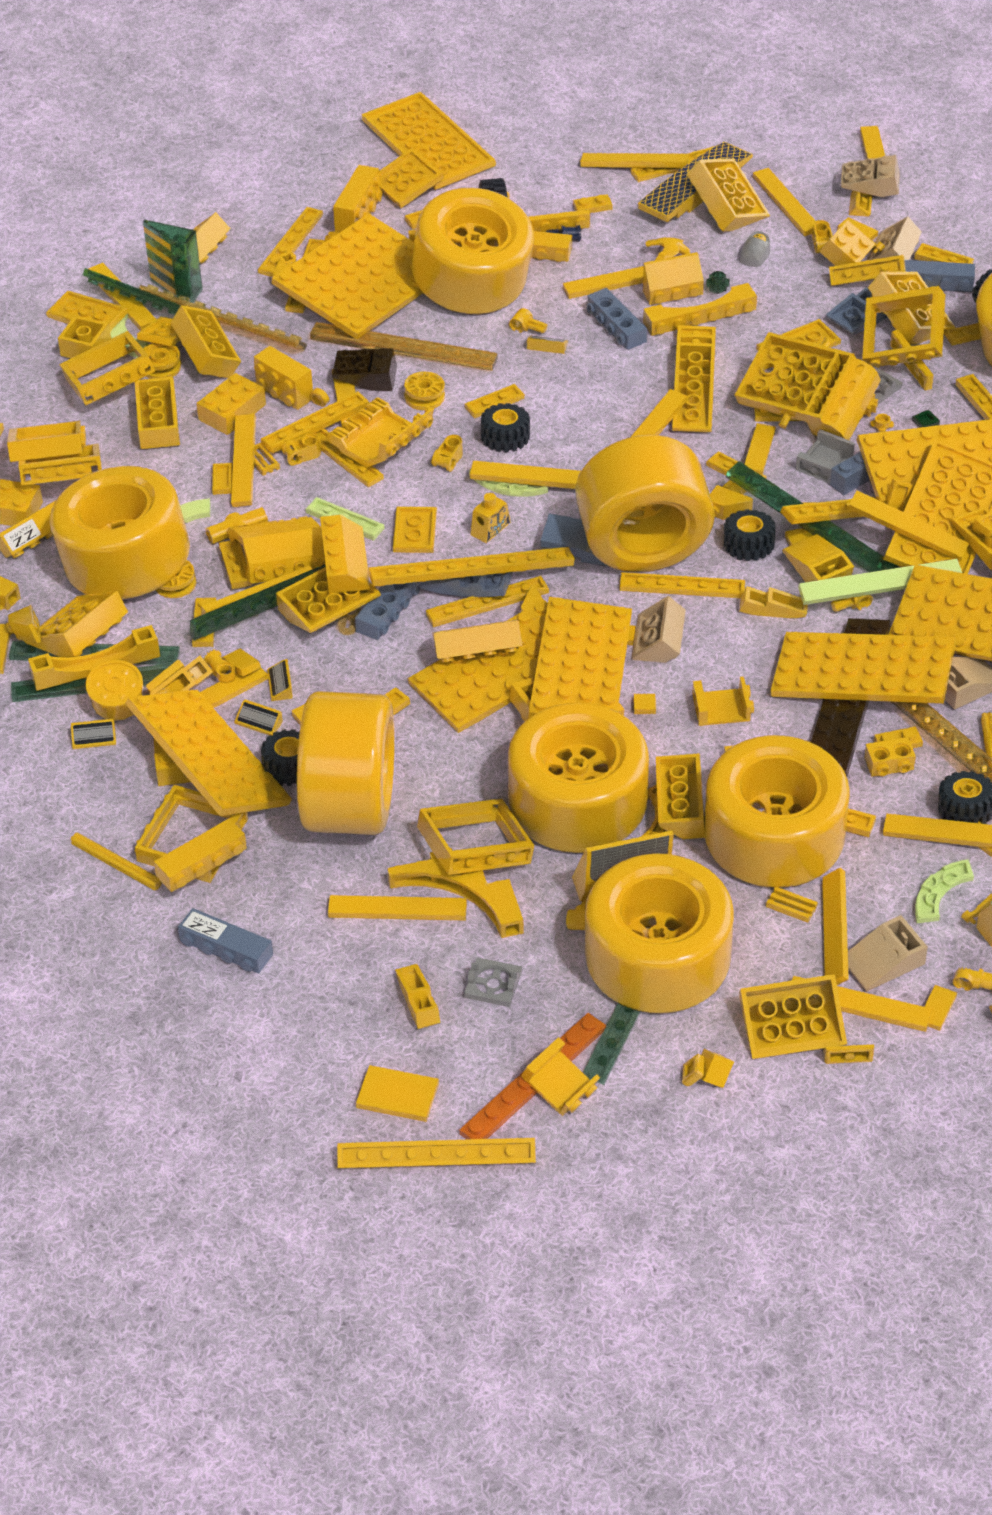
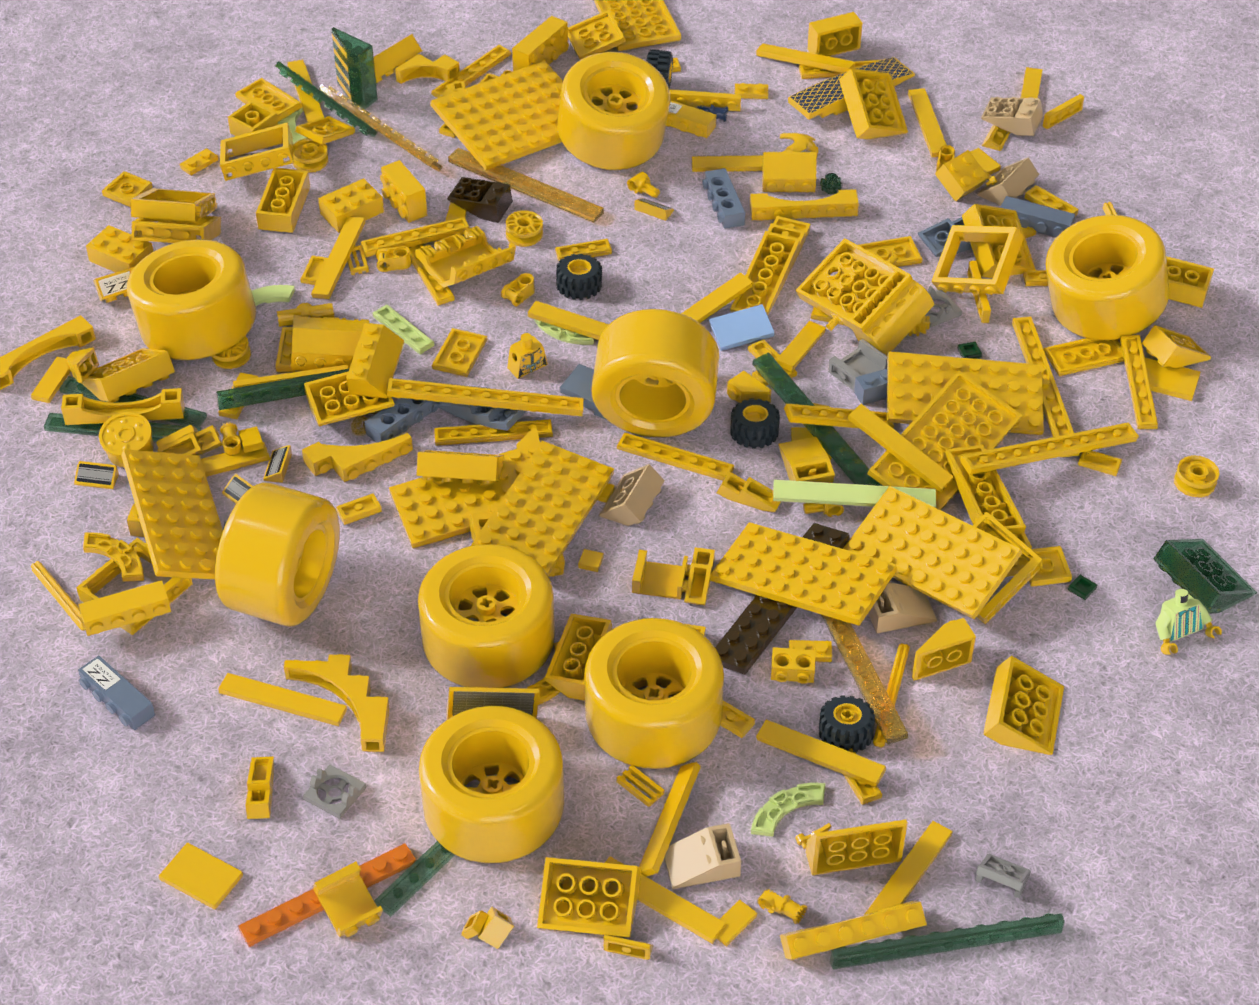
camera: 15 degrees right, 0 degrees up
(41, 392) = (198, 161): none -> yellow plate
(164, 802) = (116, 550): none -> yellow tile
(205, 342) = (350, 145): yellow brick -> none
(235, 246) = (421, 67): none -> yellow arch
(319, 397) = (430, 215): yellow tile -> none
(356, 660) = (354, 460): none -> yellow arch
(436, 1153) = (207, 943): yellow plate -> none
(515, 853) = (371, 671): yellow window -> none
(657, 129) = (835, 35): none -> yellow brick
(701, 438) = (741, 327): none -> light blue tile
(755, 249) = (879, 160): light grey piece -> none
(761, 693) = (700, 576): none -> yellow slope
(865, 270) = (965, 199): yellow plate -> none
(882, 422) = (927, 344): yellow plate -> none
(898, 494) = (905, 416): yellow tile -> none
(917, 164) = (1063, 111): none -> yellow tile

